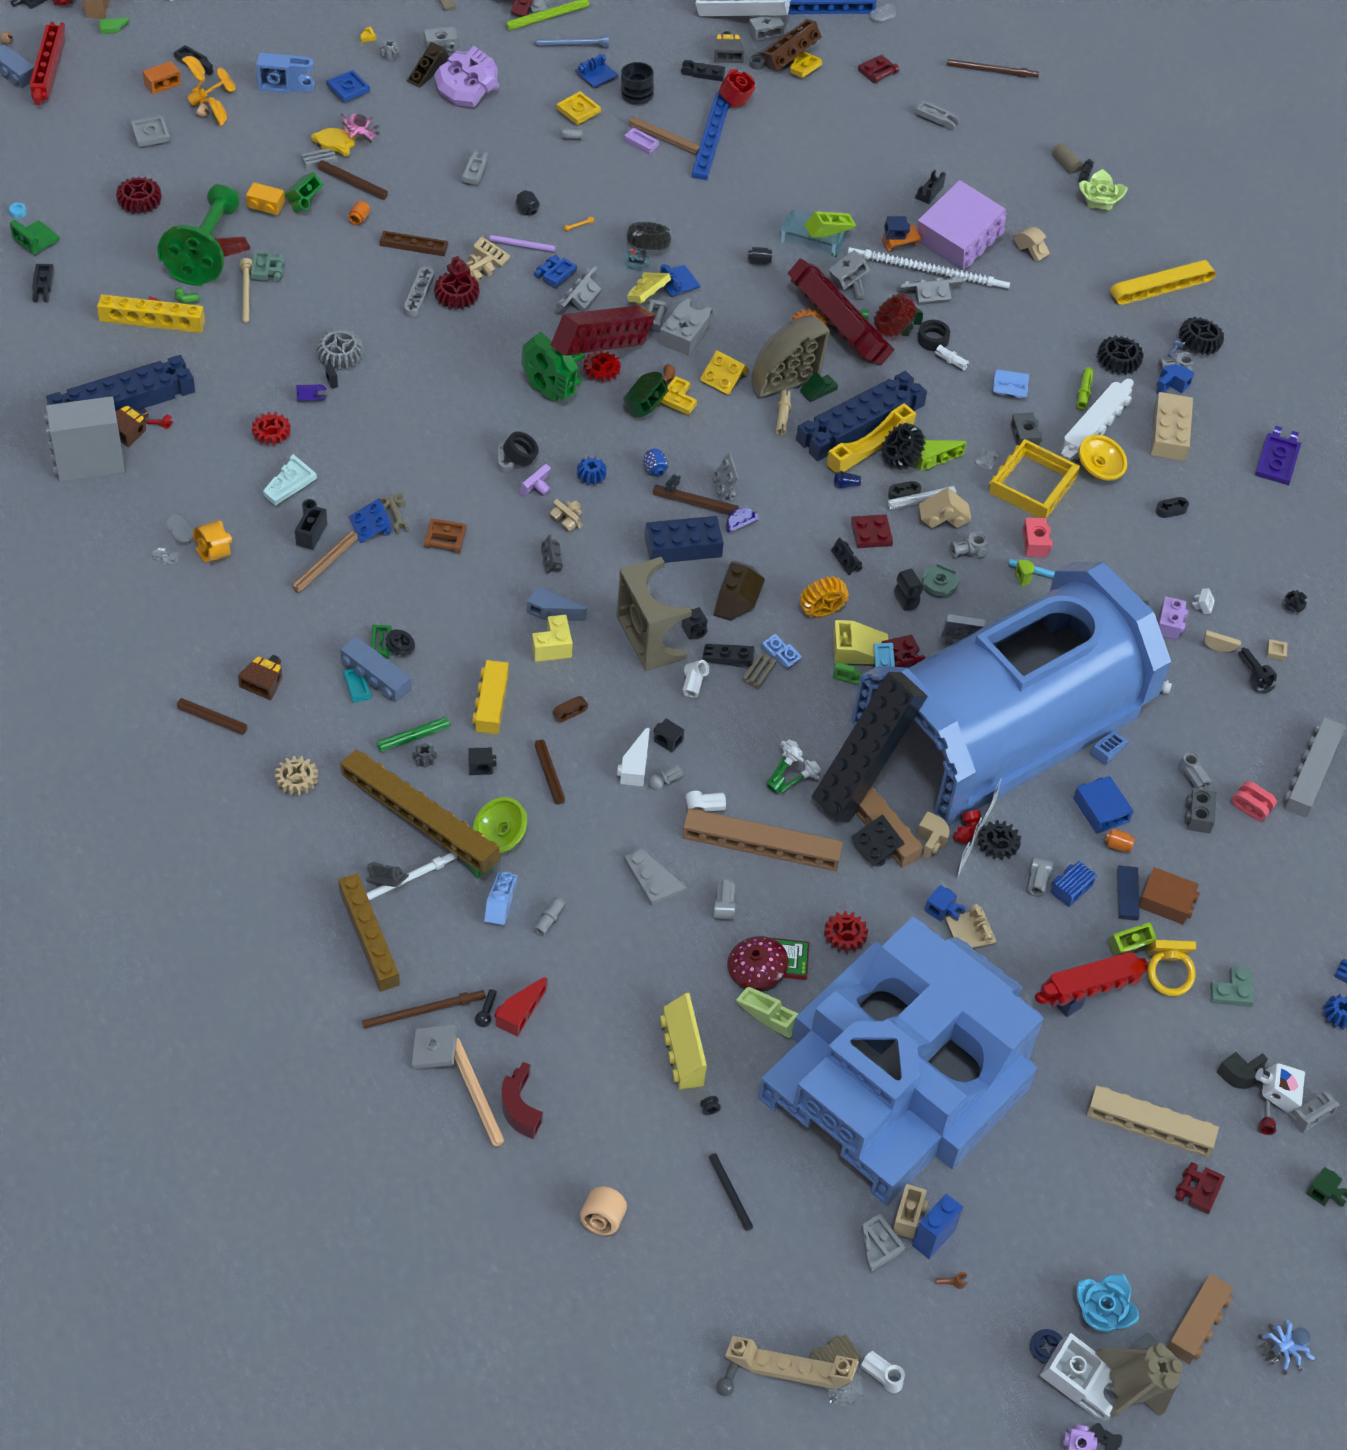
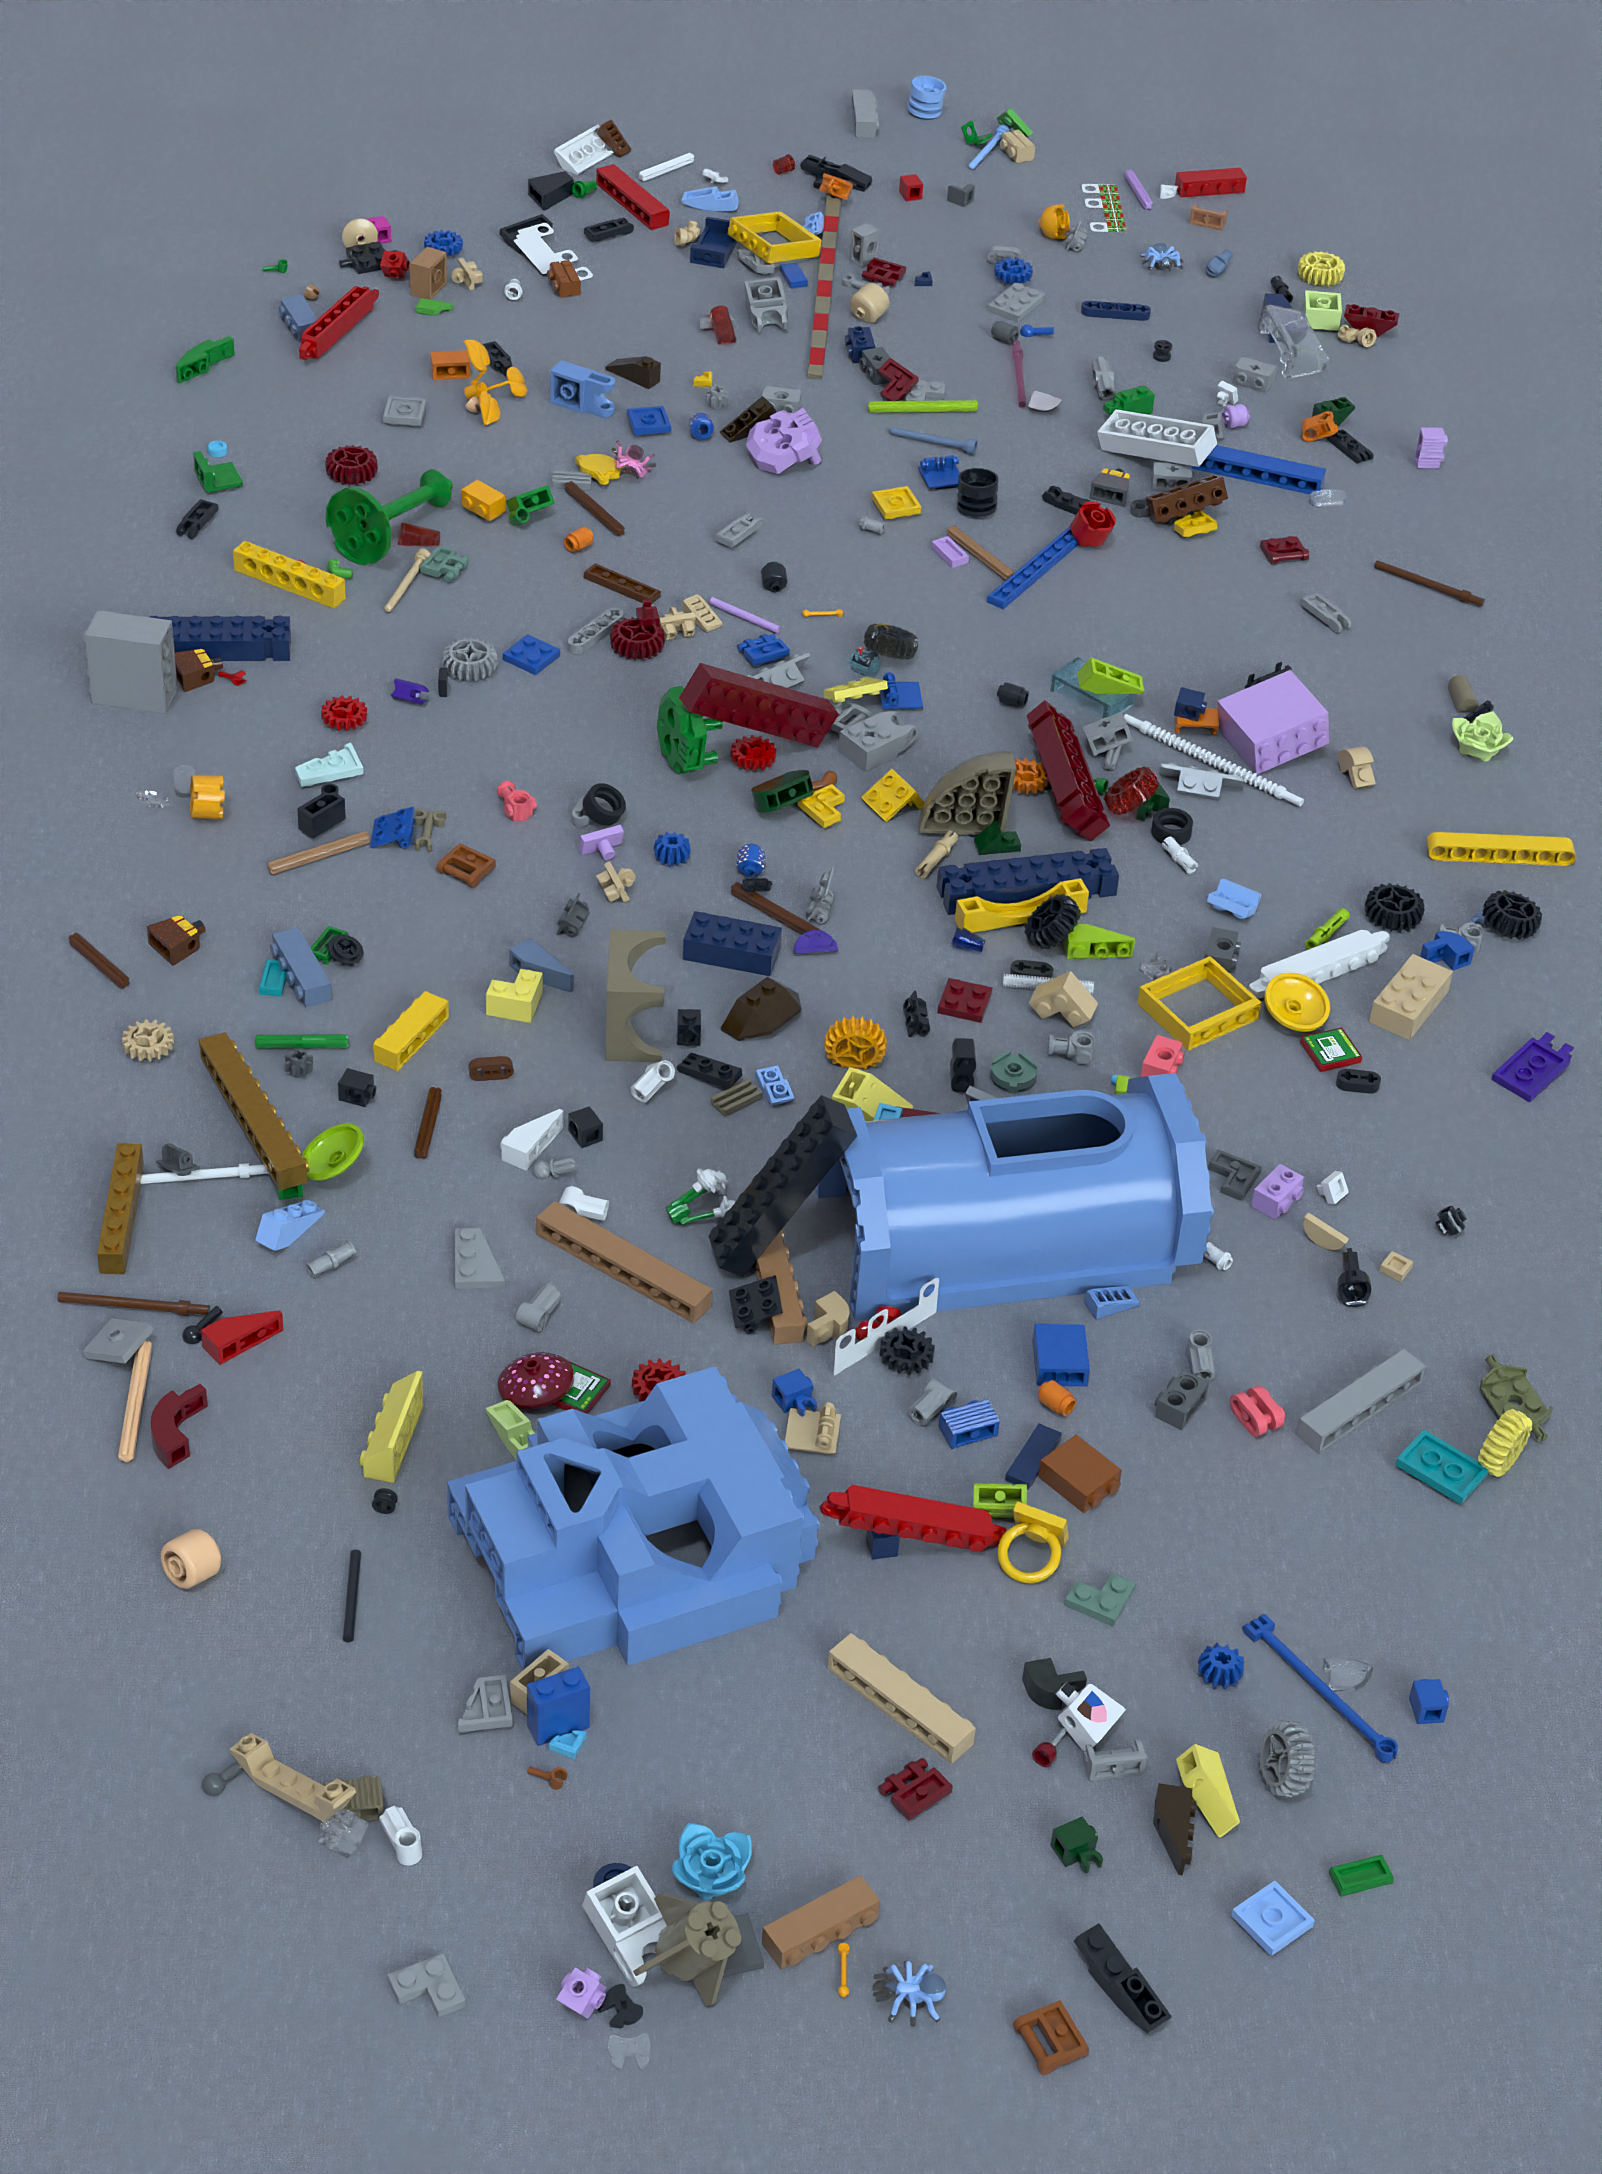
camera: 25 degrees right, 10 degrees down
(313, 40) = (639, 370): none -> dark brown slope
(382, 328) = (531, 654): none -> blue plate
(393, 80) = (701, 426): none -> blue head
(453, 467) = (518, 803): none -> coral connector
(950, 1249) = (568, 1744): none -> medium azure tile
(1140, 487) = (1331, 1049): none -> tile
(1222, 1332) = (843, 1950): none -> light orange hinge

